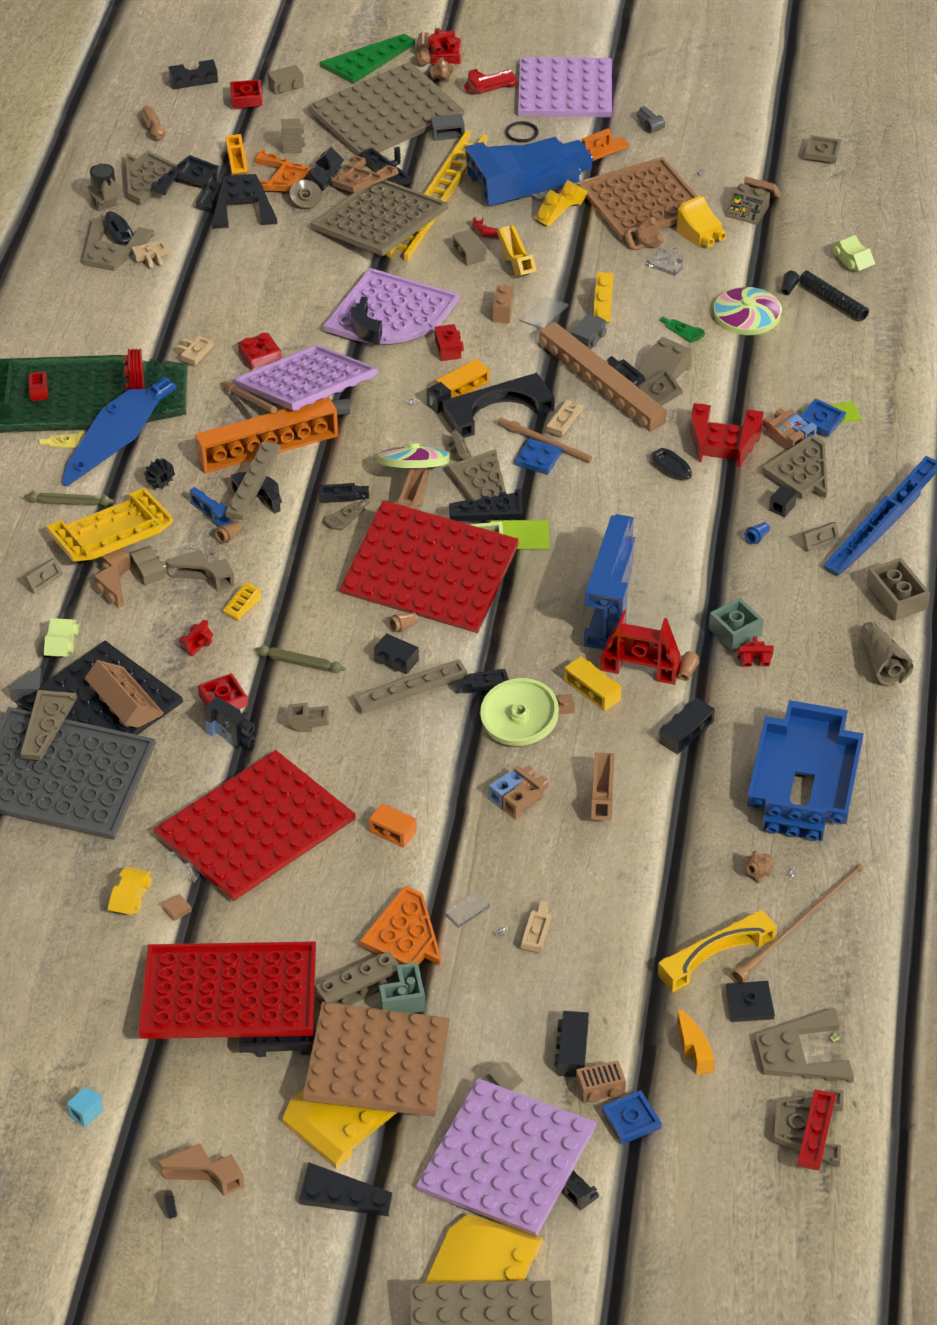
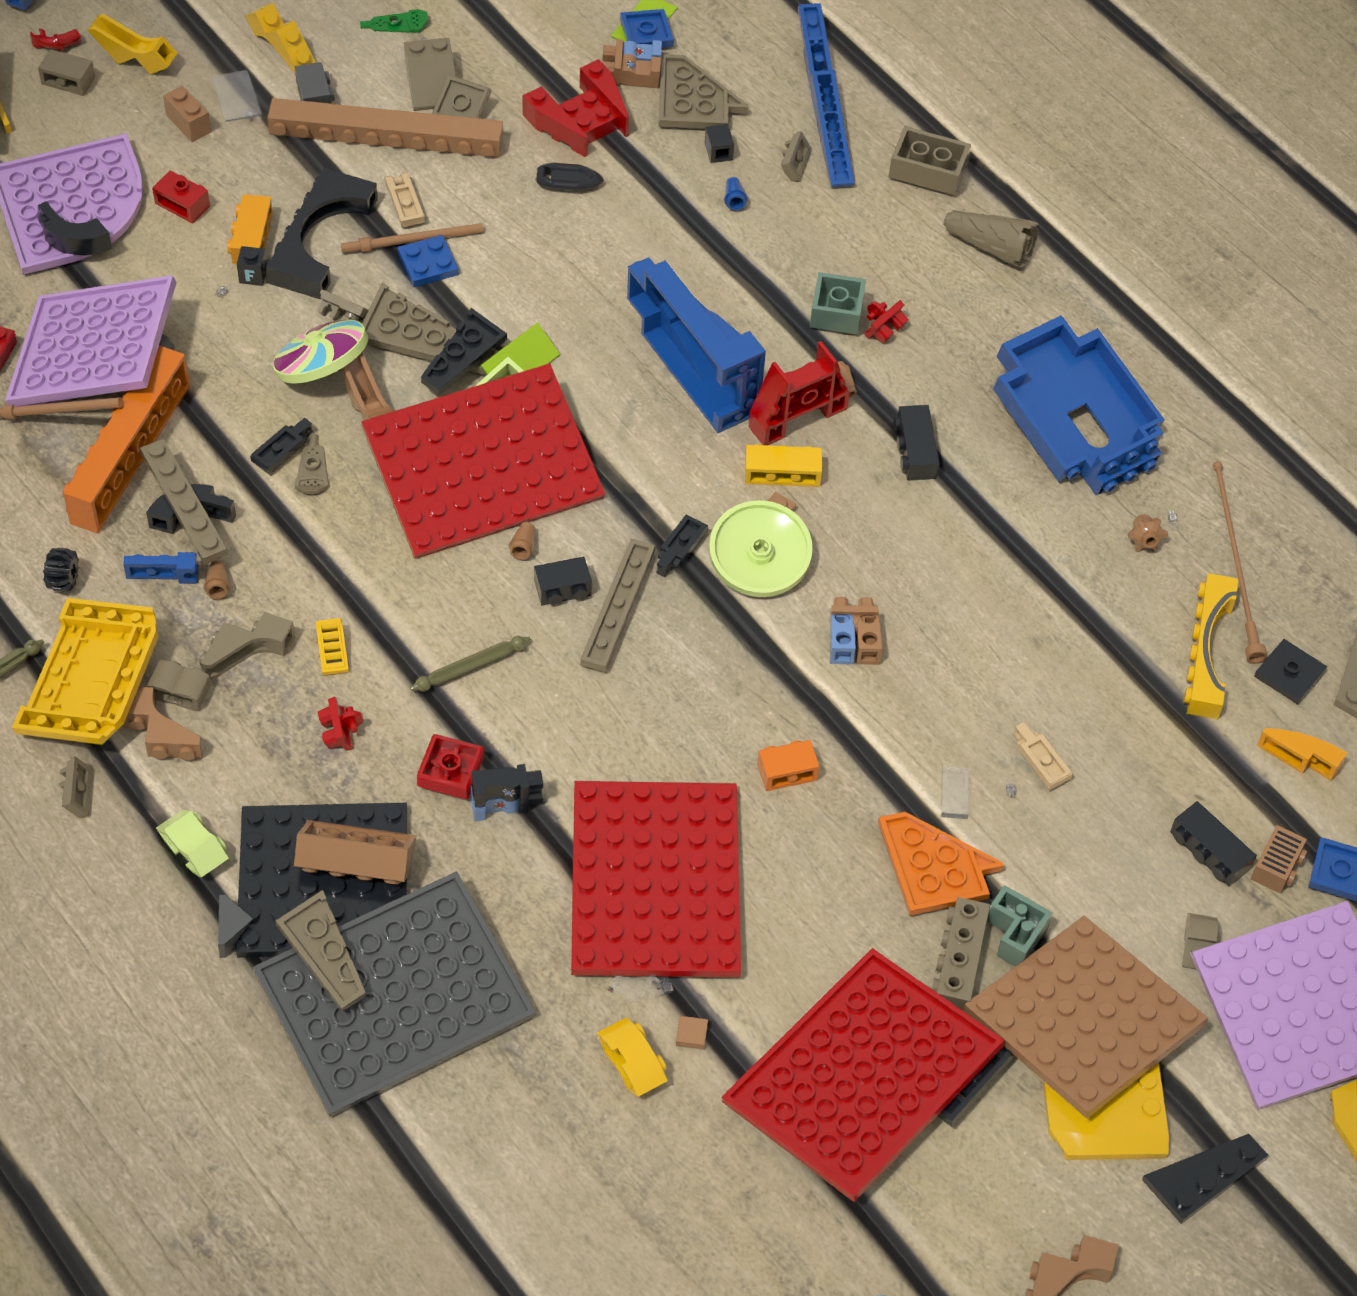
camera: 50 degrees left, 10 degrees up
(304, 718) = (563, 720): dark tan brick -> none
(602, 786) = (927, 564): medium nougat arch -> none
(627, 370) = (405, 103): black hinge -> none

